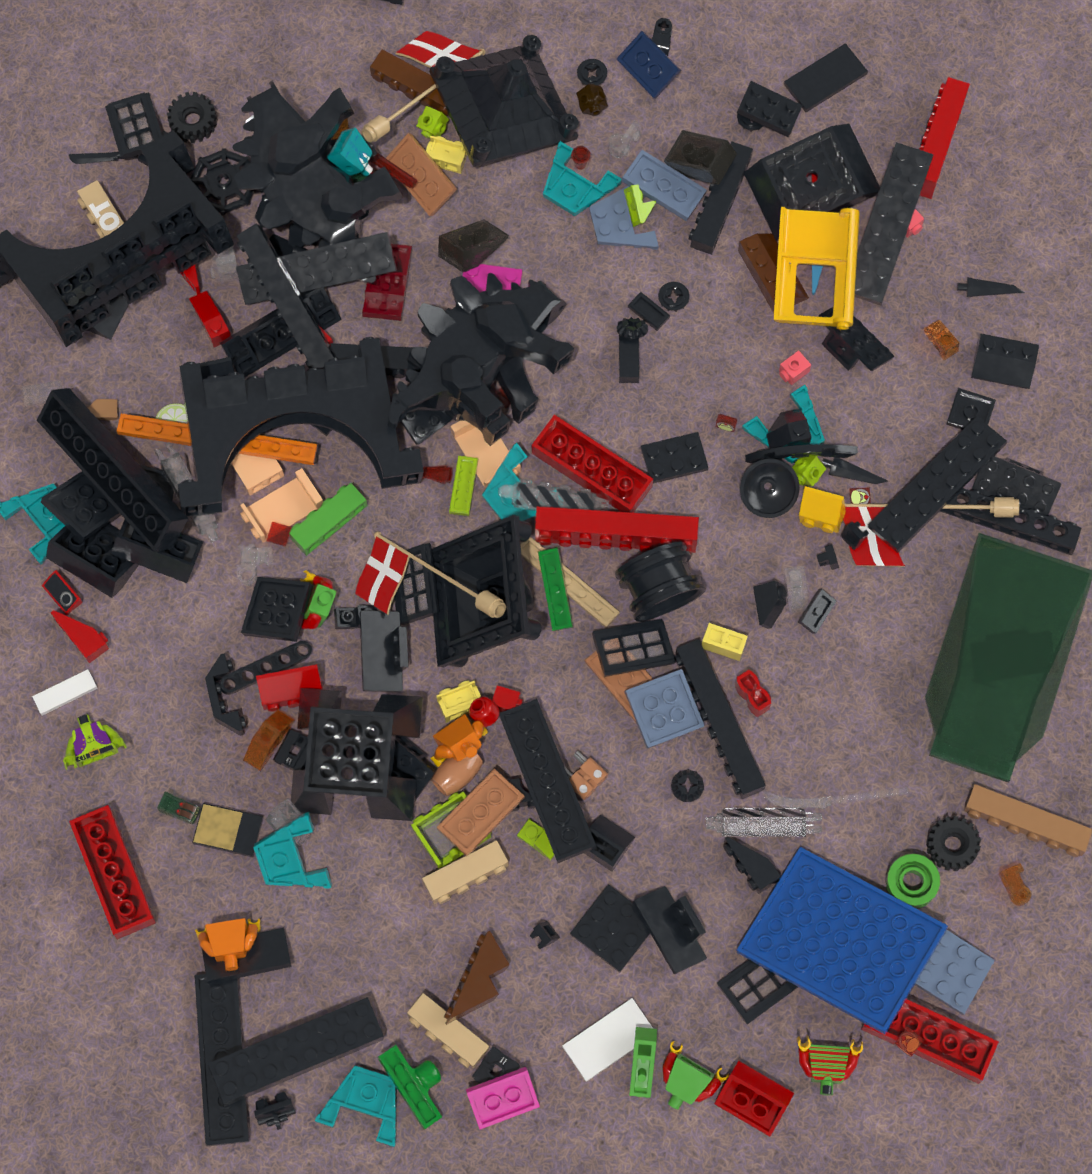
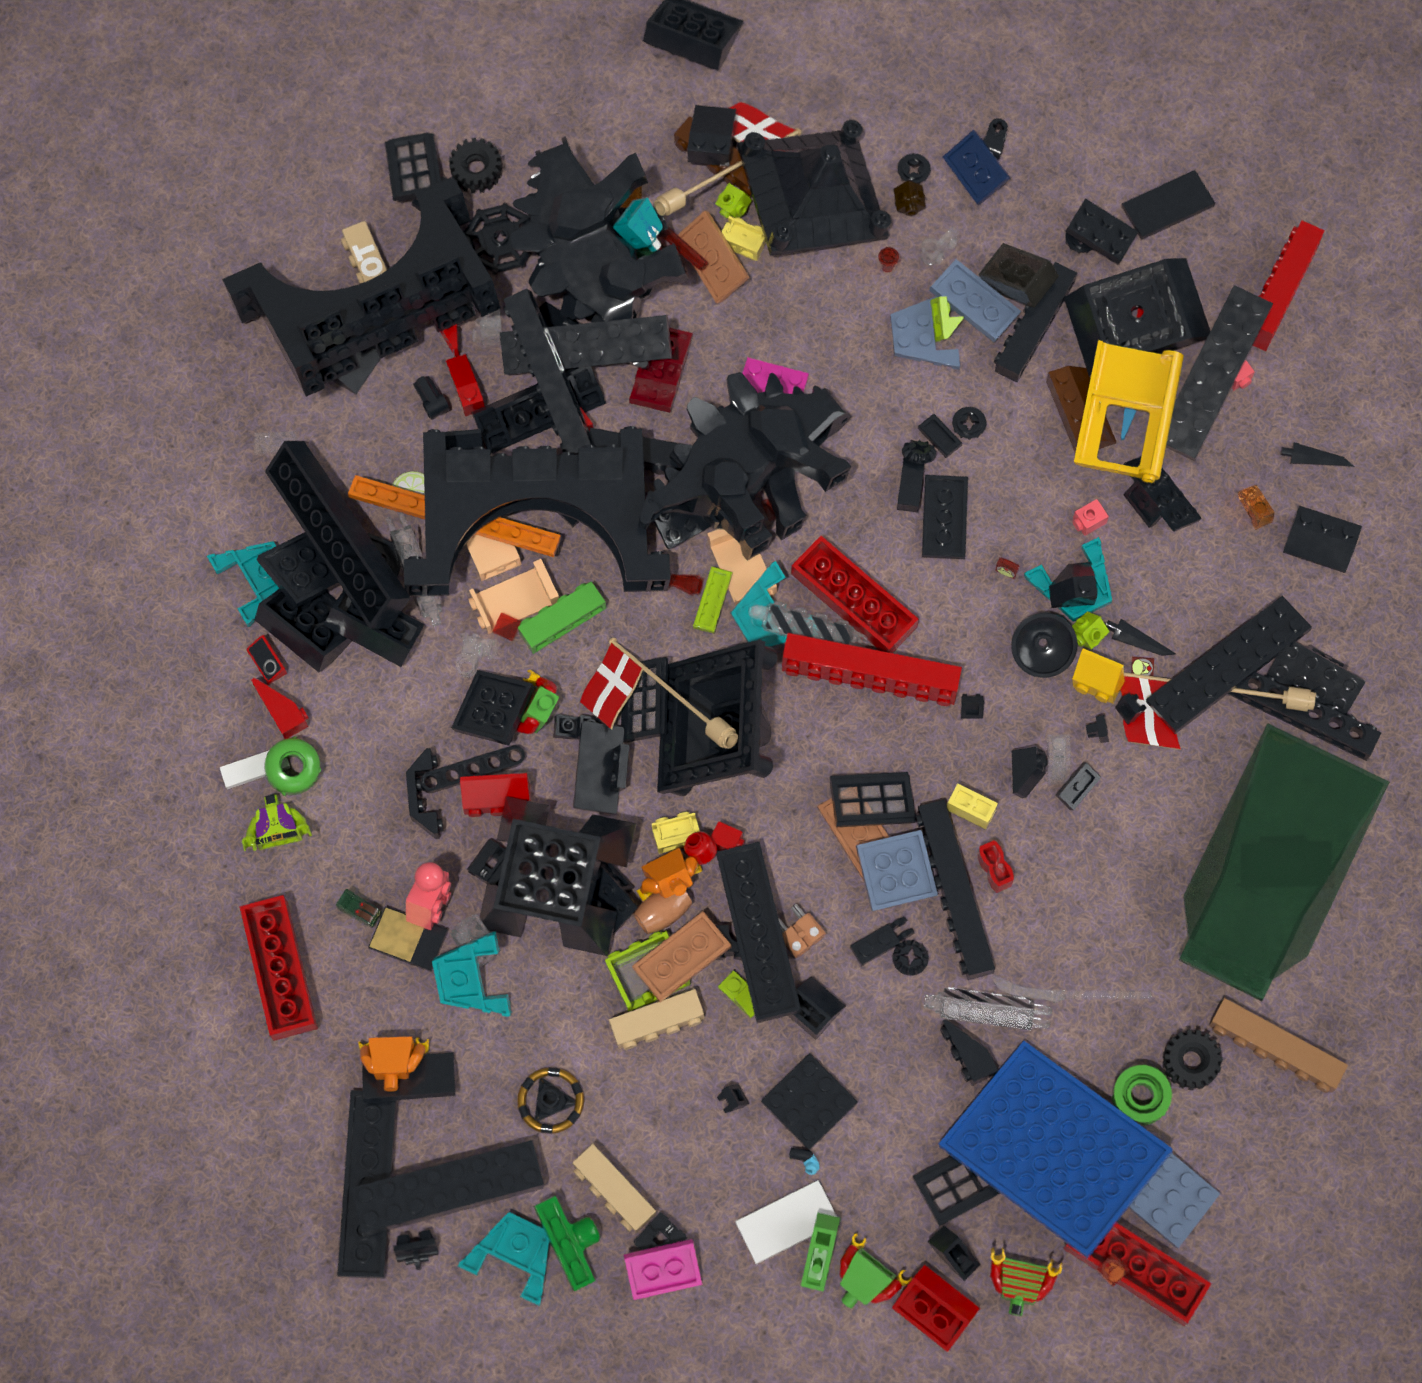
camera: 10 degrees right, 0 degrees up
(84, 158) = (357, 195): black piece -> none
(95, 703) = (292, 784): none -> bright green piece
(104, 409) = (339, 468): medium nougat slope -> none
(182, 337) = (432, 401): none -> black piece
(241, 788) = (428, 895): none -> coral brick
(267, 739) = (464, 846): clear orange slope -> none
(378, 959) = (550, 1100): none -> black piece
(404, 64) = (711, 135): none -> black slope
(470, 244) = (756, 339): clear smoke slope -> none
(477, 984) = (652, 1144): reddish brown slope -> none
(555, 589) = (796, 725): green plate -> none
(572, 190) = (873, 293): teal wing -> none
(575, 587) = (811, 719): tan tile -> none
(620, 979) = (807, 1157): none -> arm
(658, 775) = (880, 942): none -> black hinge
(660, 581) = (910, 731): black wheel -> none
(663, 384) = (944, 517): none -> black tile
(672, 928) = (873, 1110): black bracket -> none
(674, 457) = (945, 598): black plate -> none
(712, 552) = (972, 706): none -> black tile
(763, 1046) = (954, 1252): none -> black slope
(800, 451) = (1086, 609): black tile -> none
(968, 406) = (1275, 583): black tile -> none
(1014, 885) = (1253, 1114): clear orange leg -> none

